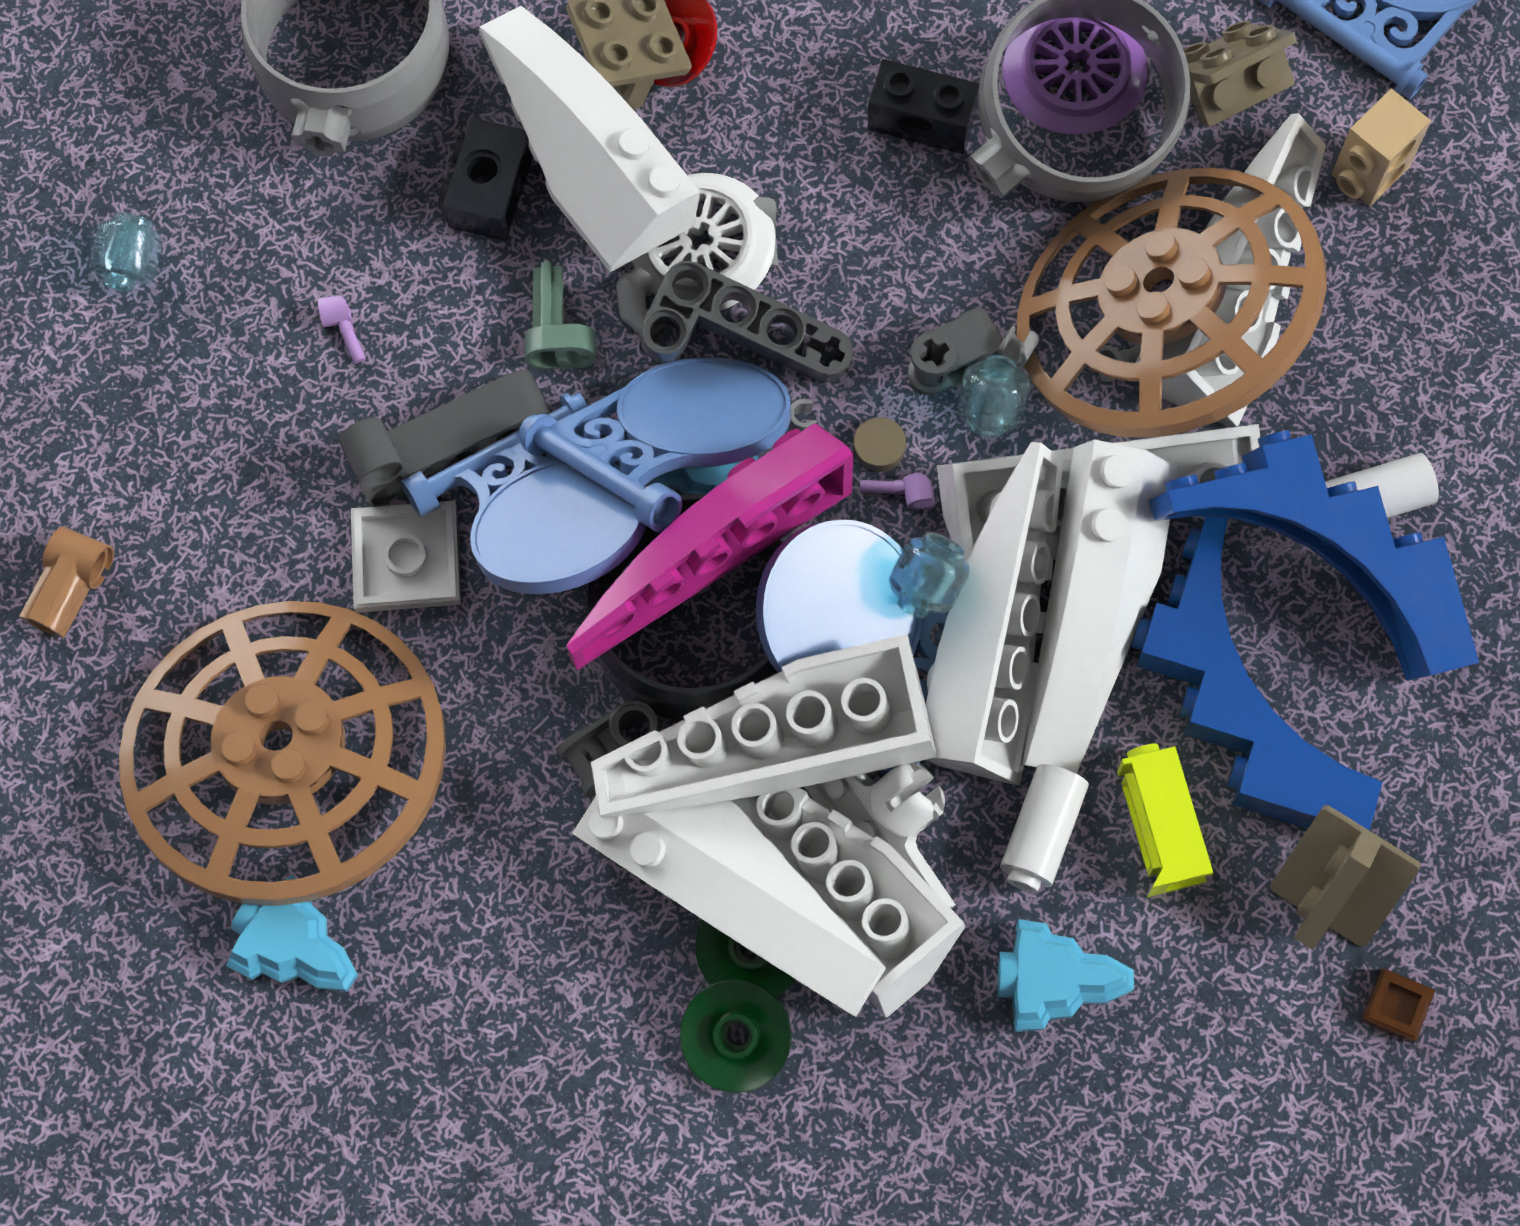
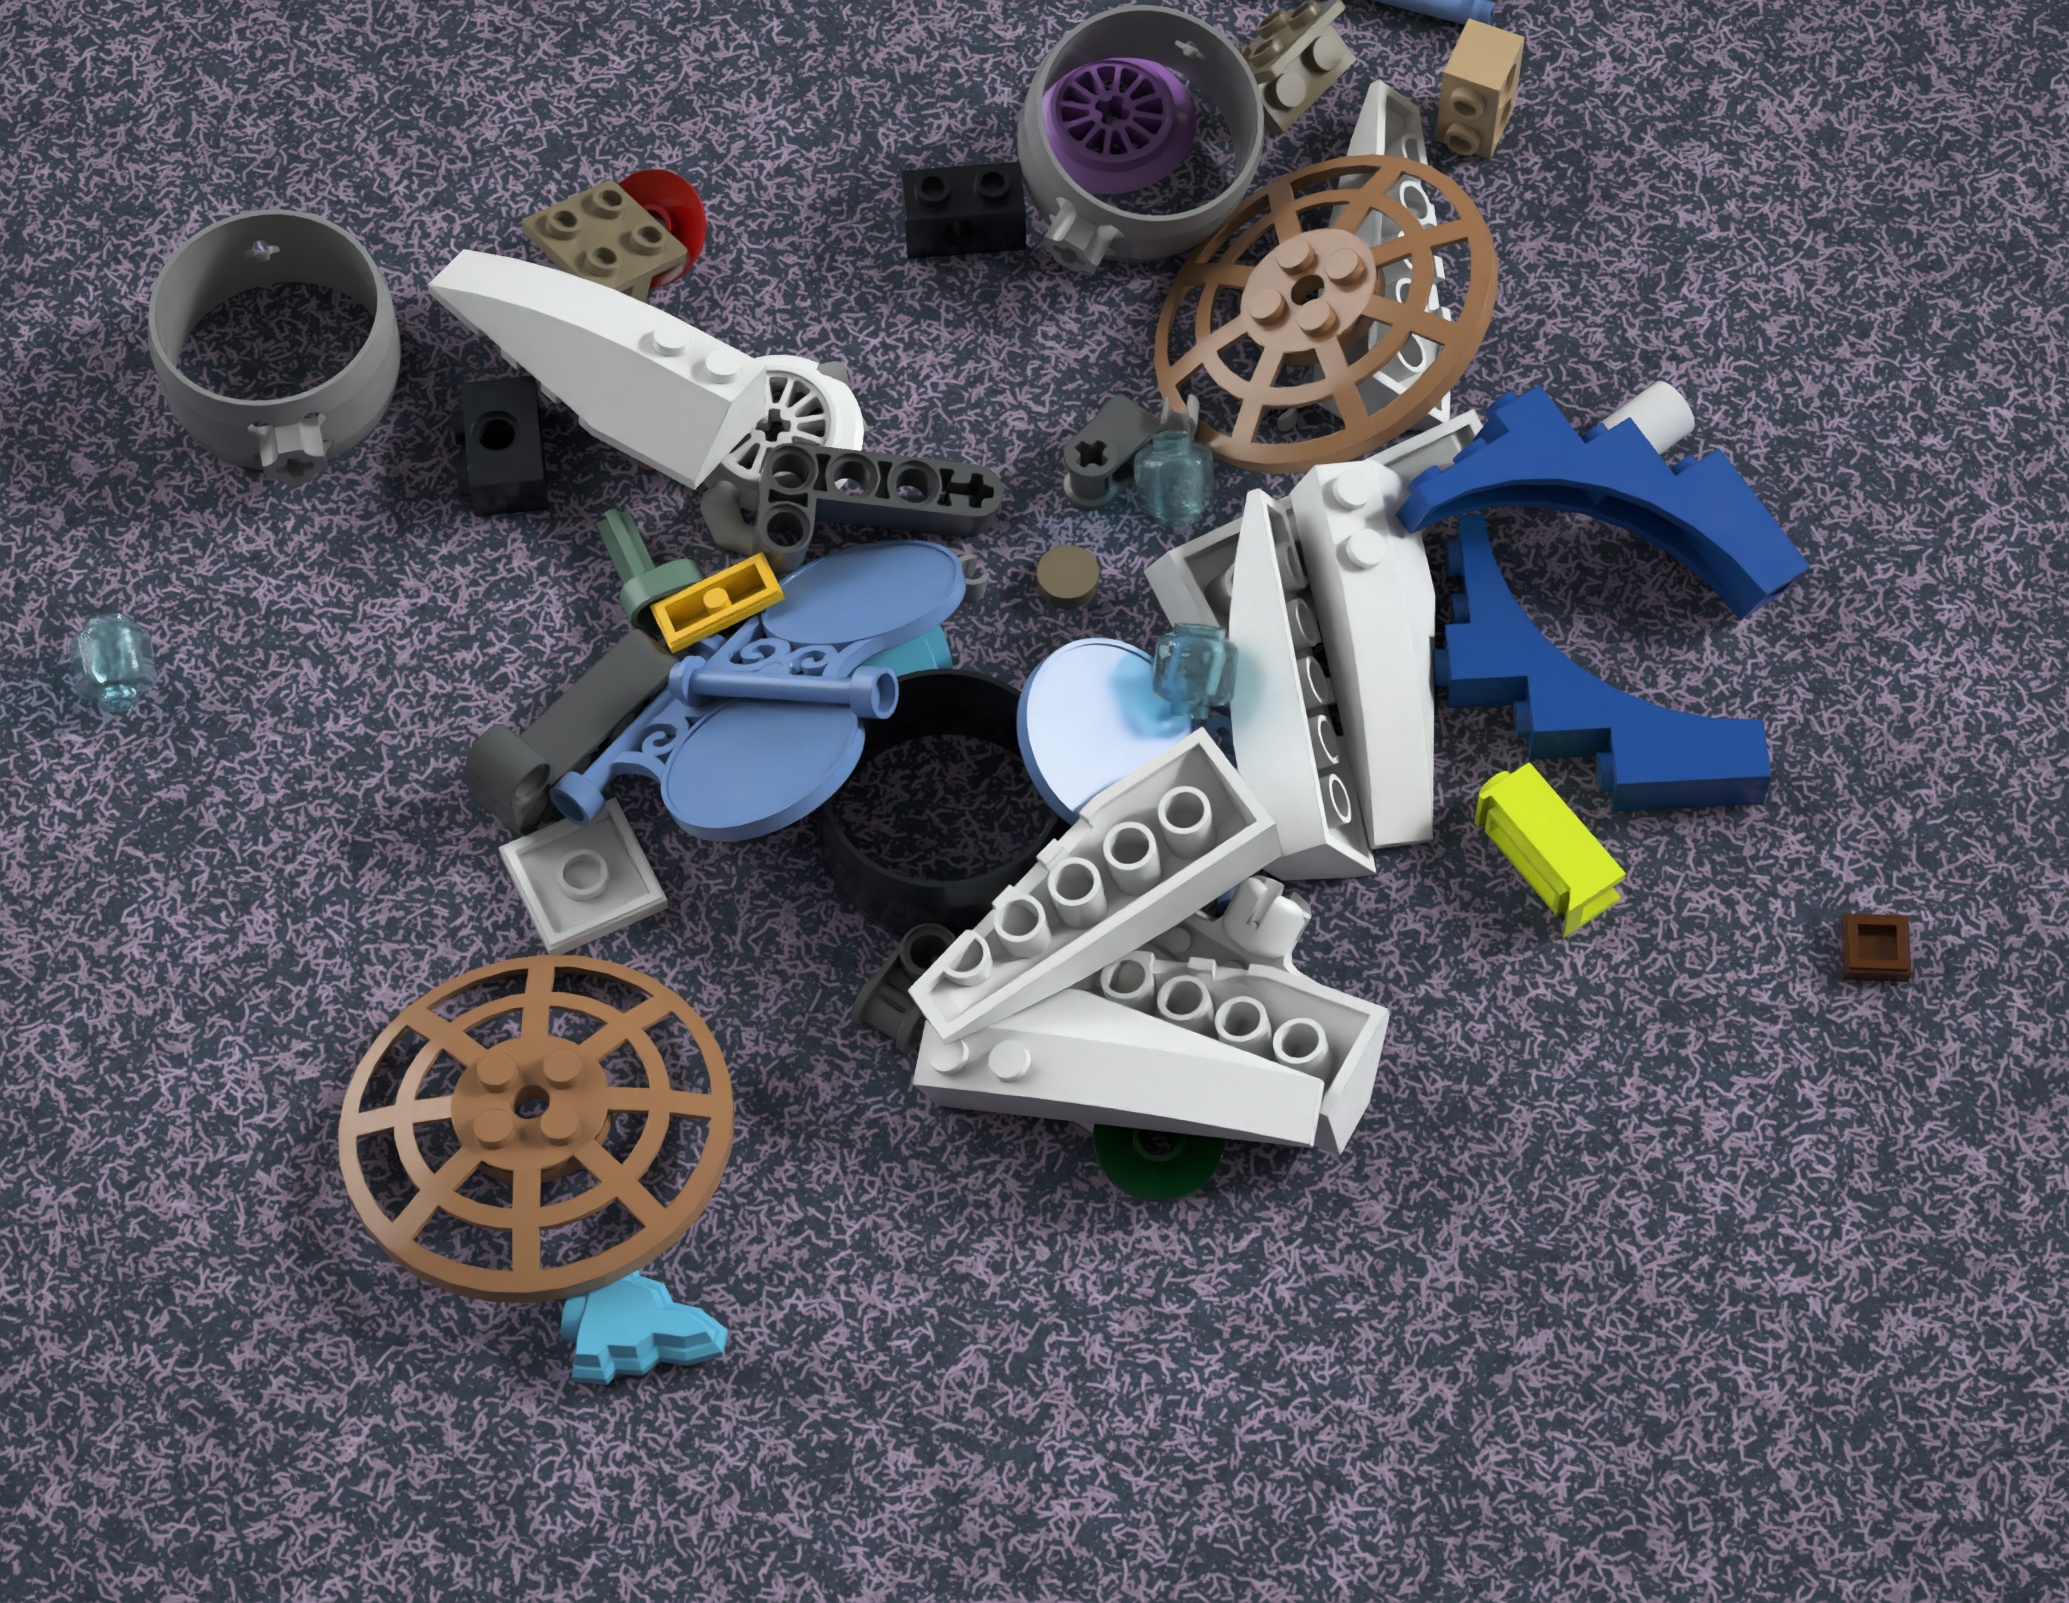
camera: 25 degrees left, 10 degrees down
(70, 569) = (198, 1034): medium nougat piece -> none
(335, 312) = (387, 646): lavender hand -> none
(593, 371) = (717, 602): none -> yellow slope
(714, 1053) = (1178, 1198): dark green dish -> none
(719, 533) = (954, 695): dark pink wedge -> none
(915, 486) = (1127, 605): lavender hand -> none
(1043, 827) = (1423, 900): white brick -> none
(1054, 977) = (1502, 1050): medium azure rock -> none
(1343, 879) = (1764, 833): dark tan bracket -> none

